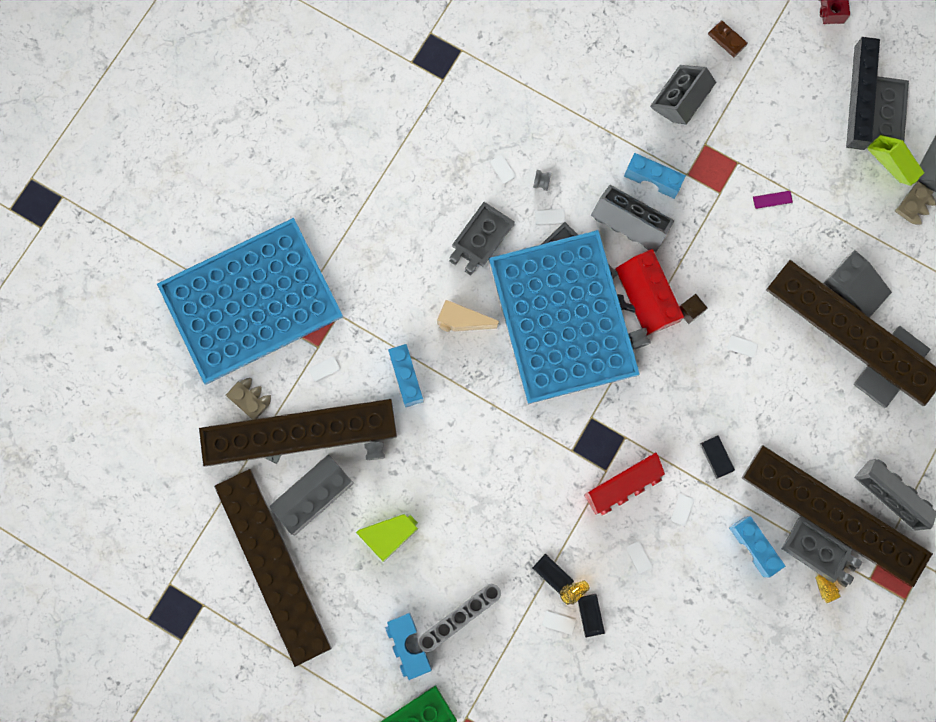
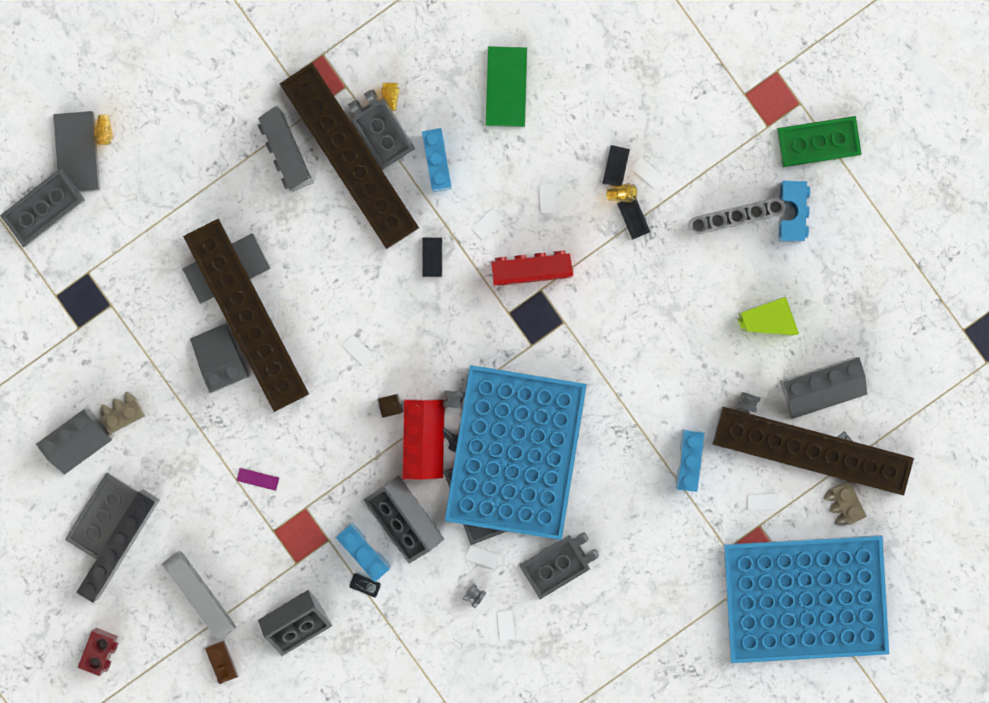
camera: 155 degrees left, 10 degrees up
(273, 568) = (886, 337): dark brown plate -> none
(459, 318) = (615, 493): tan slope -> none
(642, 149) = (365, 585): none -> black sticker
(726, 645) = (506, 86): none -> green tile
(774, 82) = (199, 595): none -> light grey beam
(896, 159) = (122, 464): lime slope -> none

